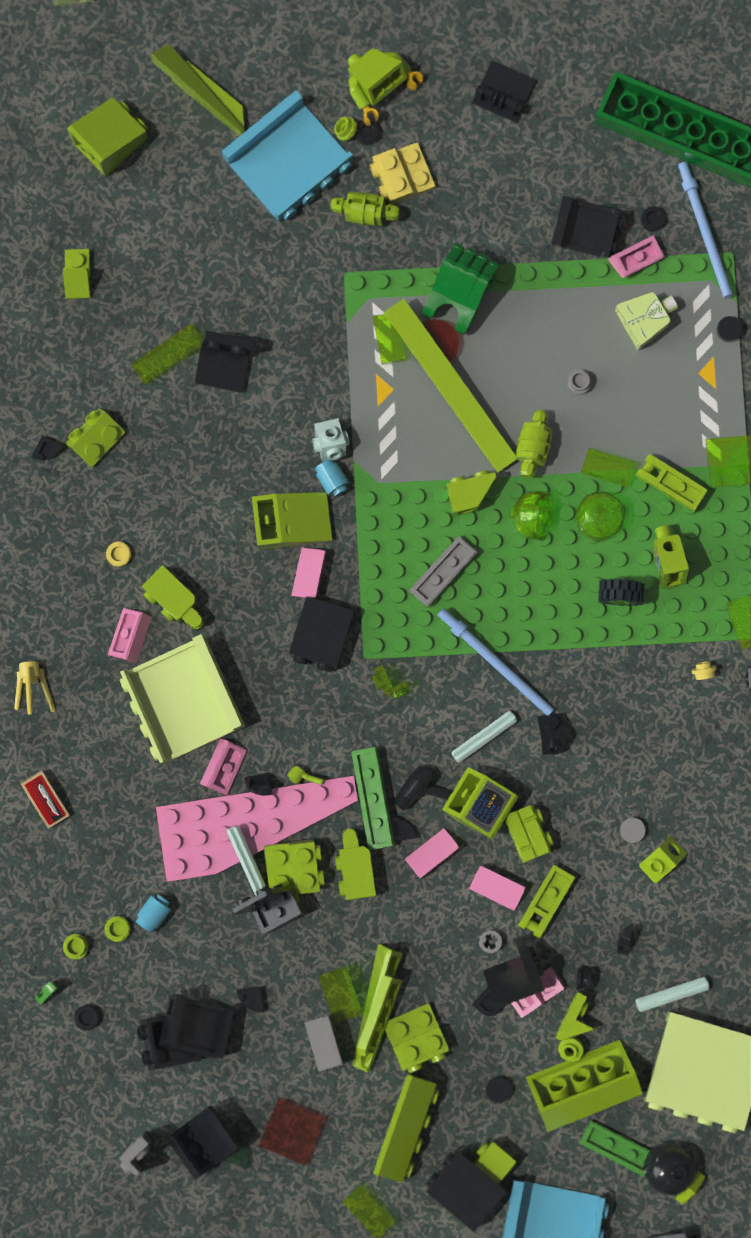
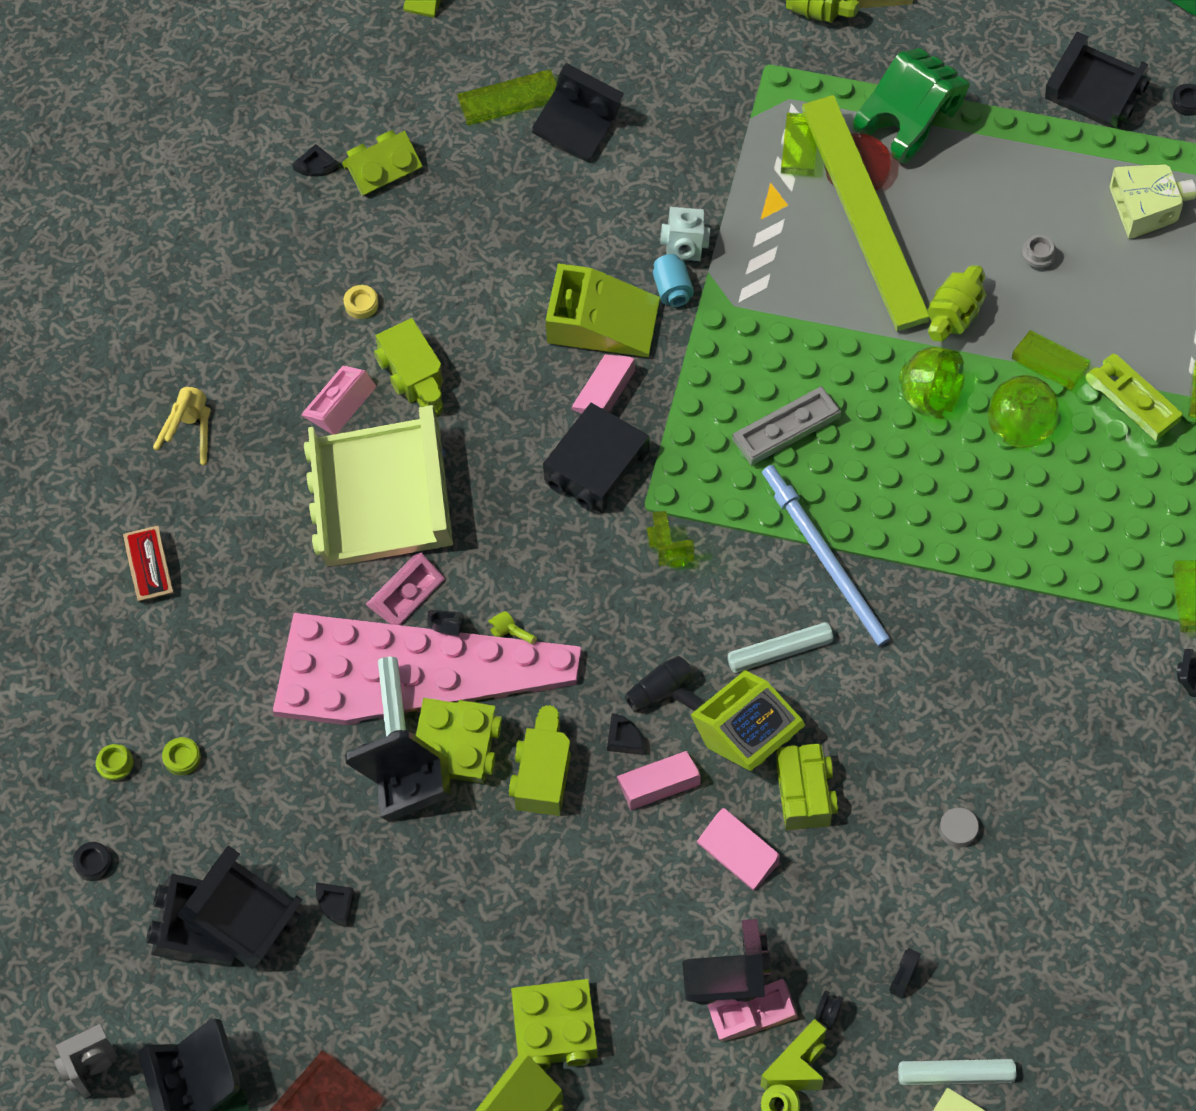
camera: 15 degrees right, 20 degrees down
(47, 991) = (53, 809): bright green tile -> none
(153, 913) = (238, 745): medium azure brick -> none
(323, 1043) = (416, 992): light grey panel -> none
(340, 994) = (464, 932): clear neon green panel -> none
(373, 798) = (598, 682): bright green plate -> none
(378, 1005) = (514, 962): lime wedge -> none
(469, 493) = (853, 337): lime slope -> none
(482, 939) = (716, 925): light grey bush -> none
(485, 1004) = (674, 1008): black tile -> none
(546, 900) = (805, 886): lime plate -> none
(552, 734) = (878, 670): black bracket -> none
(621, 592) = (1027, 503): black wheel -> none
(636, 257) = (1155, 128): bright pink slope -> none
(662, 860) = (990, 878): lime bracket -> none
(669, 558) = (1107, 467): lime torso -> none
(704, 670) = (1120, 643): light yellow plate -> none

